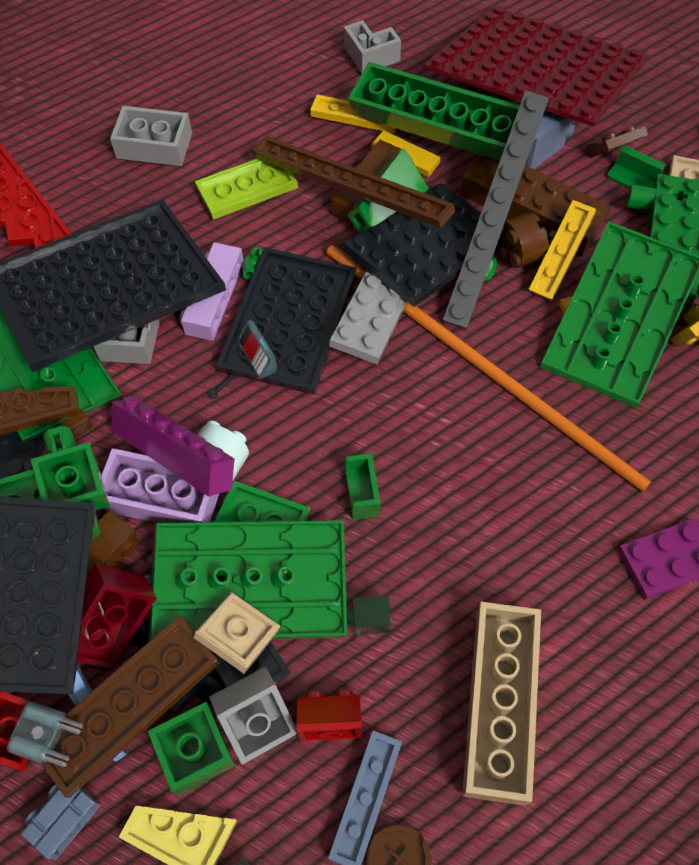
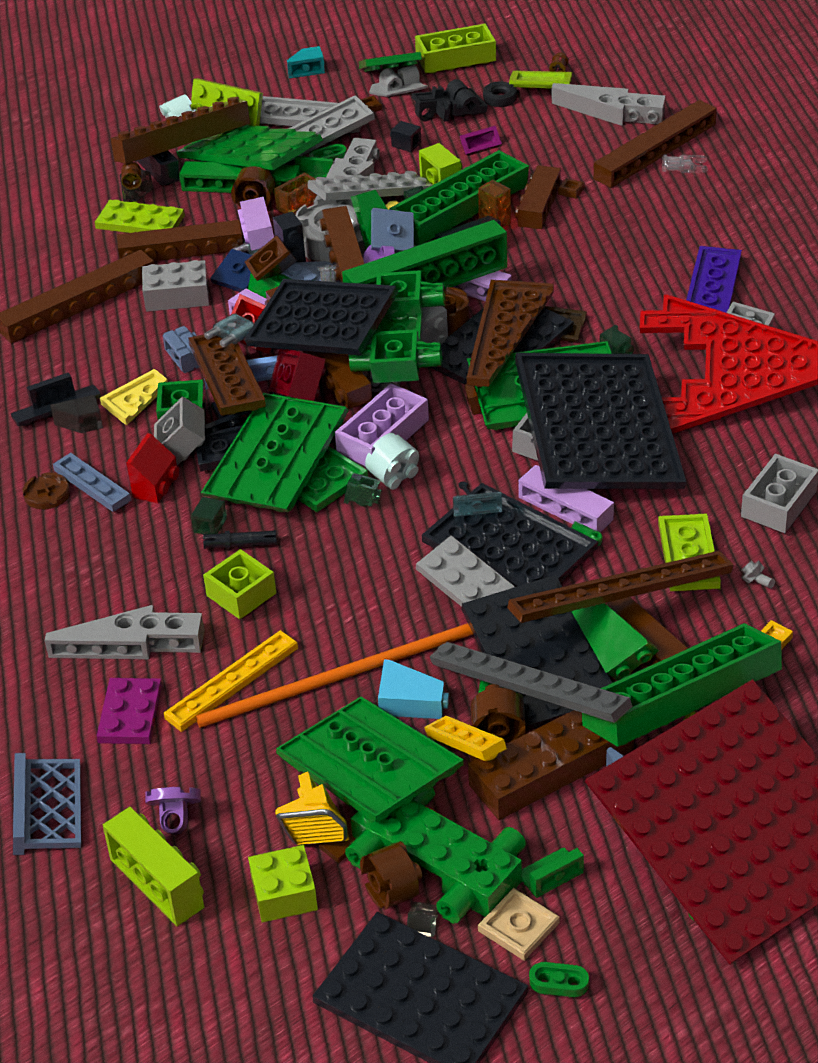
camera: 115 degrees right, 20 degrees down
(173, 446) = (404, 420): magenta brick -> none
(237, 632) = (235, 426): tan tile -> none
(252, 137) = (752, 571): none -> light grey plate
(269, 471) = (363, 490): none -> clear green brick
(362, 486) = (313, 544): green panel -> none
(395, 575) = (240, 539): none -> black pin
(466, 523) = (240, 584): none -> lime brick
(503, 705) = (98, 559): tan brick -> none
(522, 324) = (411, 693): none -> medium azure slope
(581, 484) = (231, 680): none -> yellow tile
(603, 628) = (128, 636): none -> light grey brick
(612, 142) = (596, 859): reddish brown plate -> none

